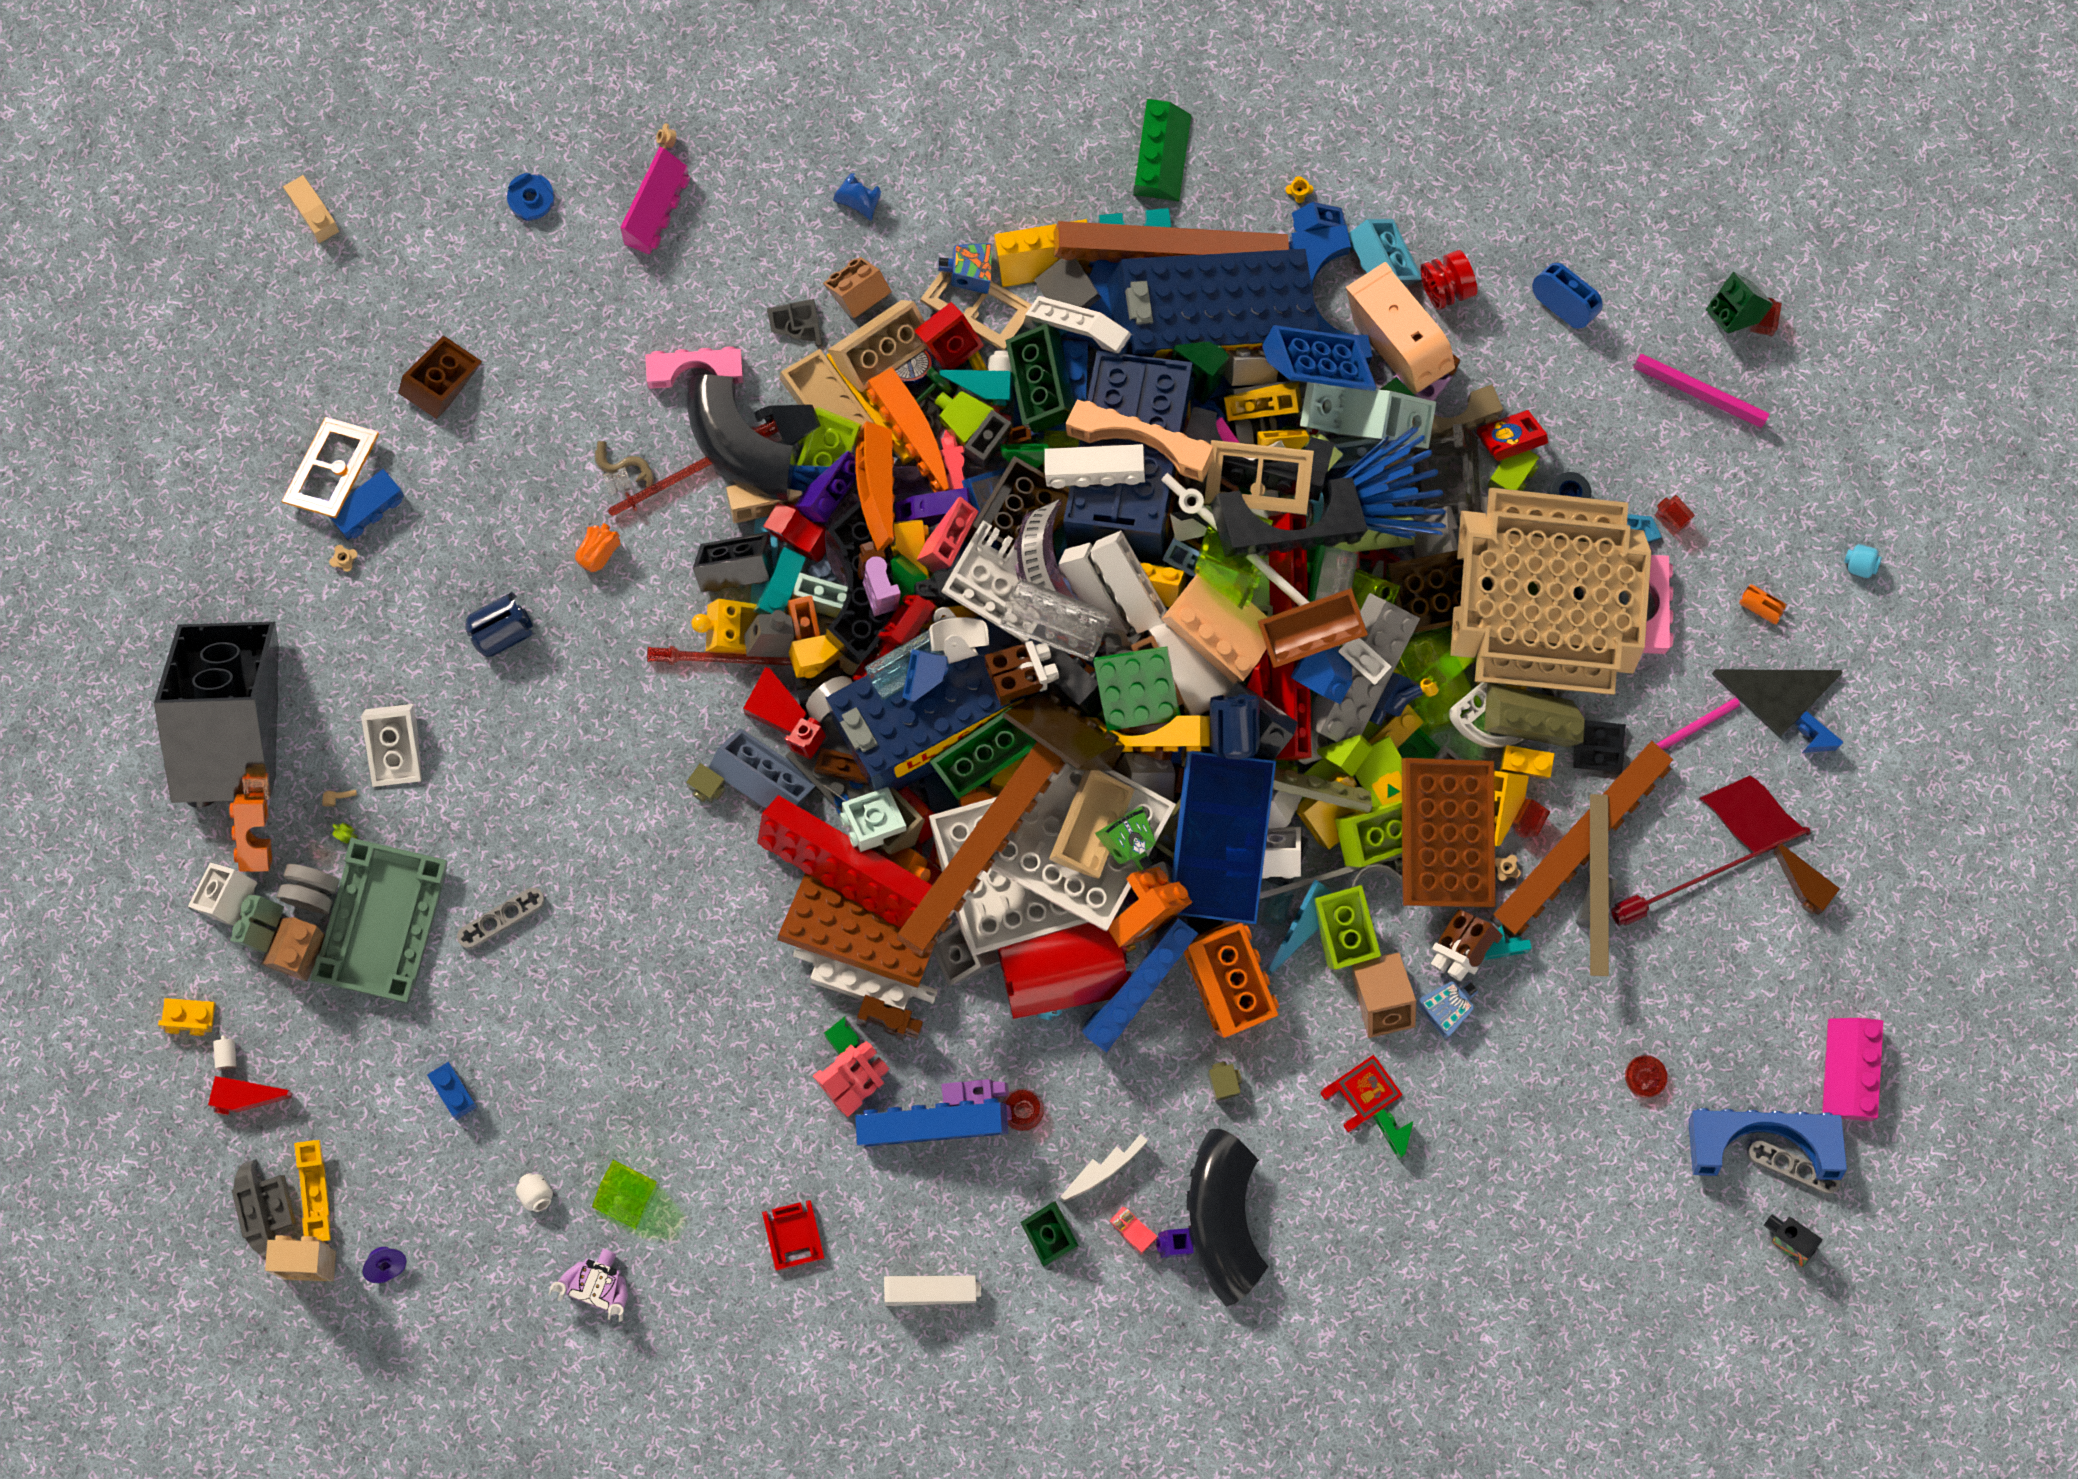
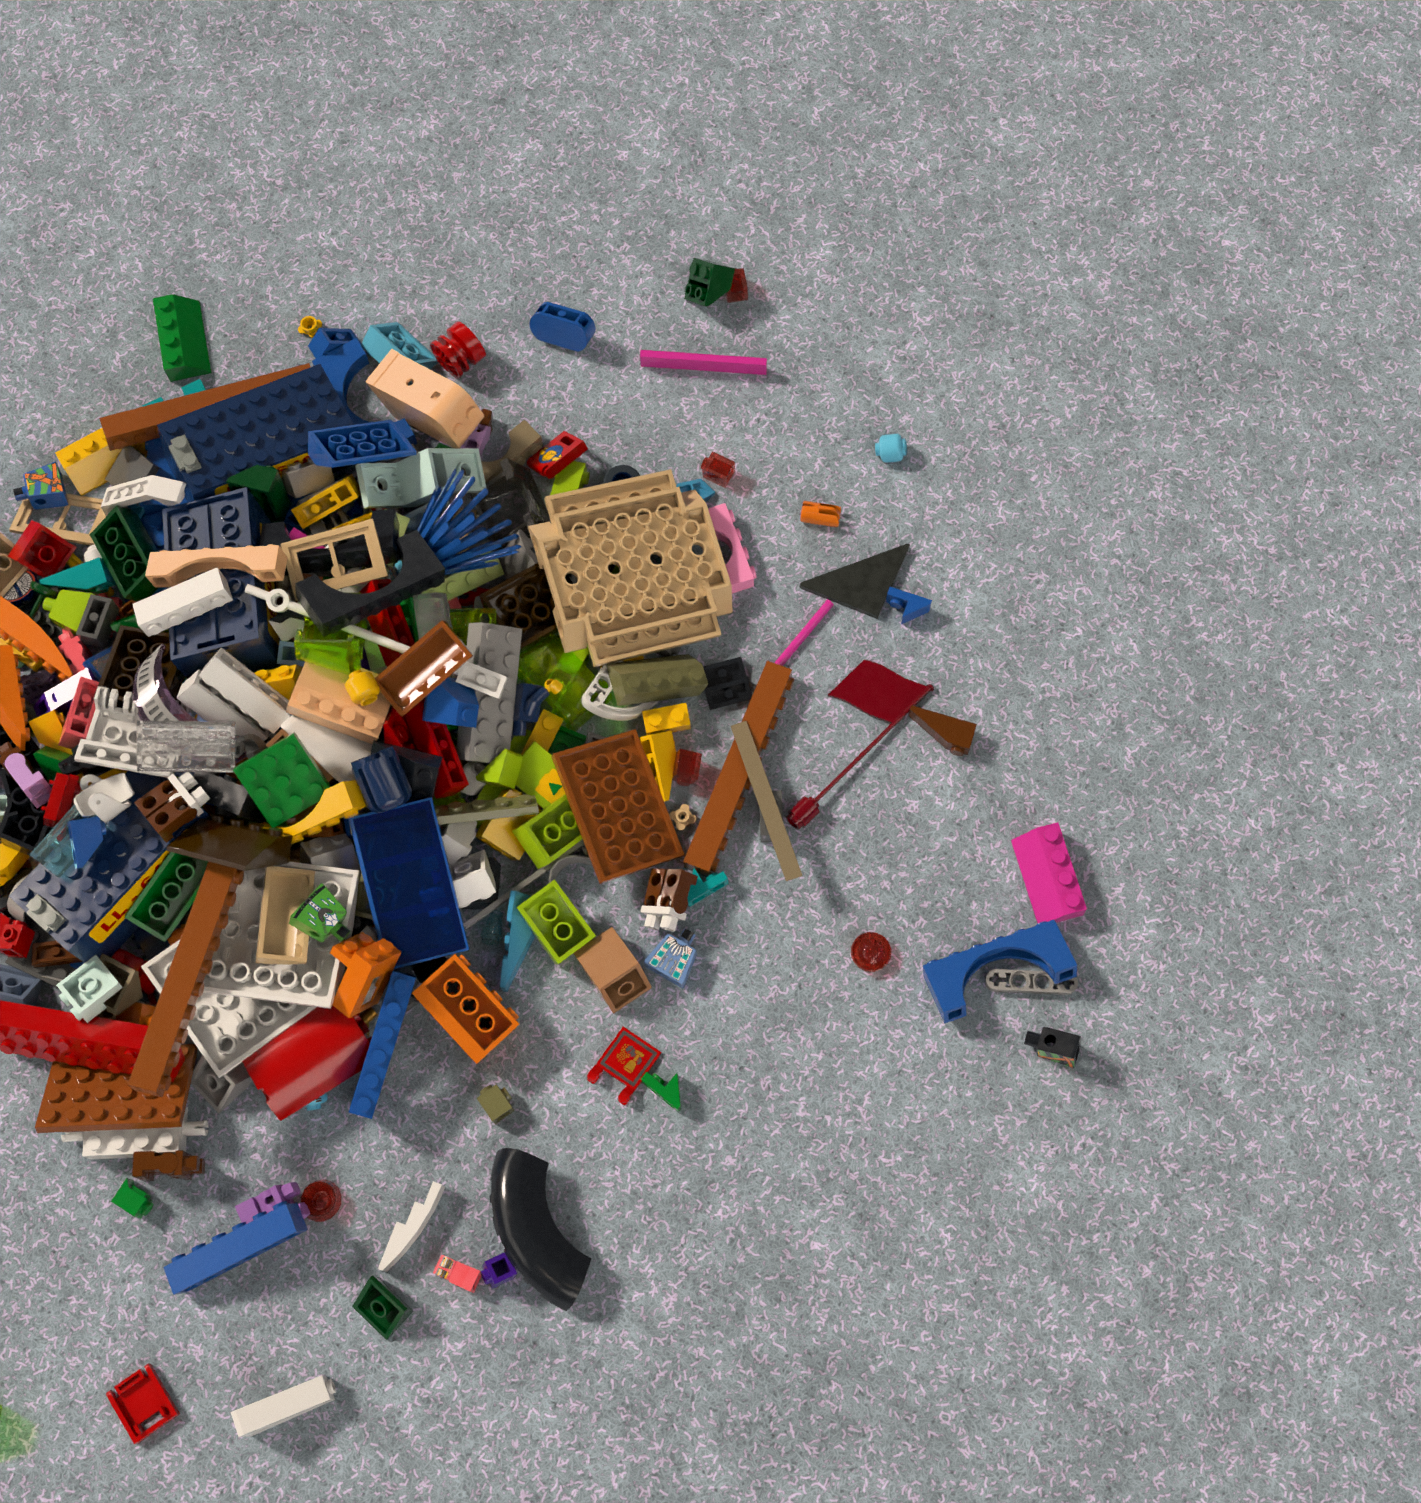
camera: 10 degrees left, 5 degrees down
(852, 1077) = (157, 1228): coral hips -> none
(1247, 625) = (362, 687): none -> yellow head

